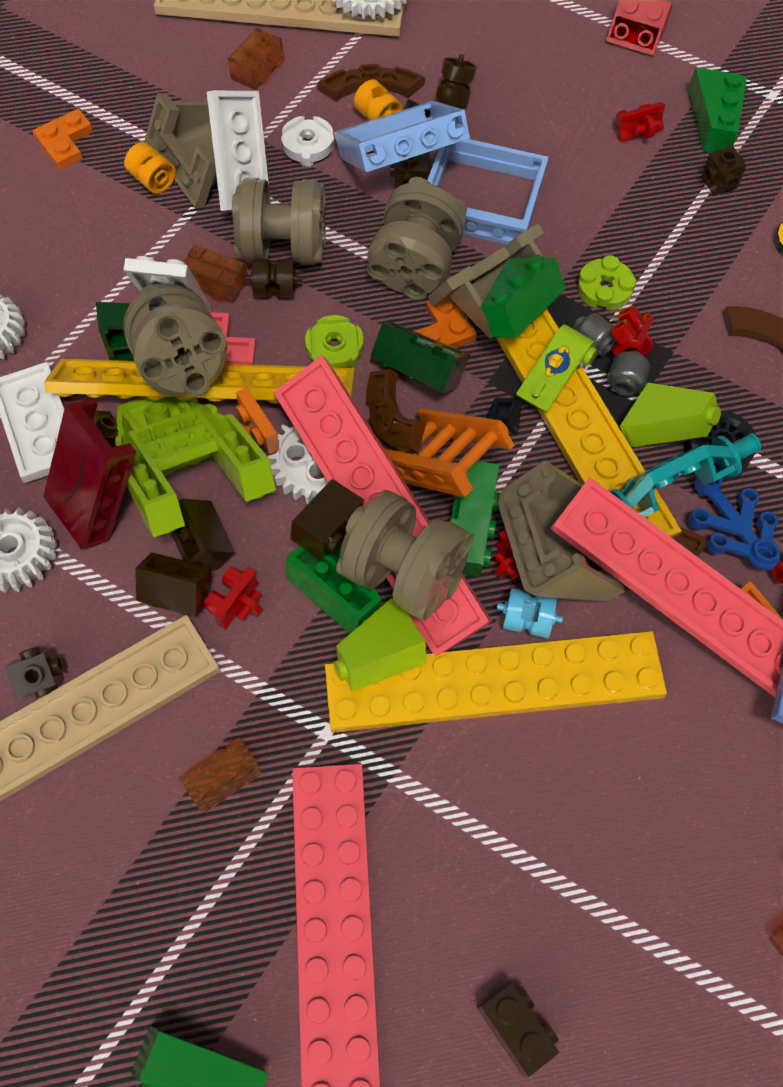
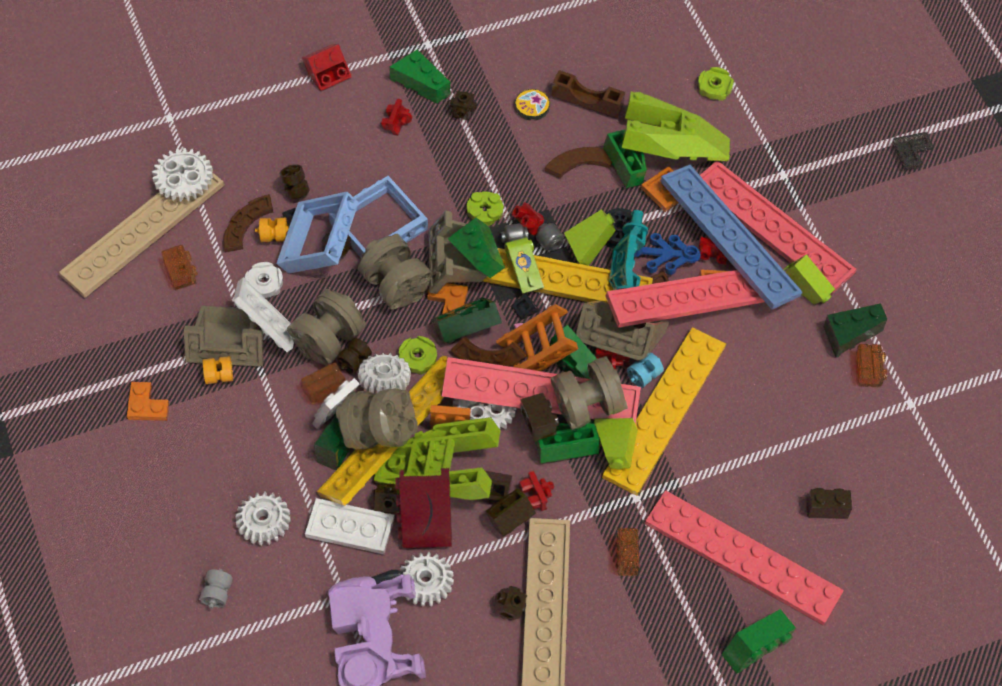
camera: 55 degrees left, 5 degrees down
(269, 322) = (384, 373): none -> white gear

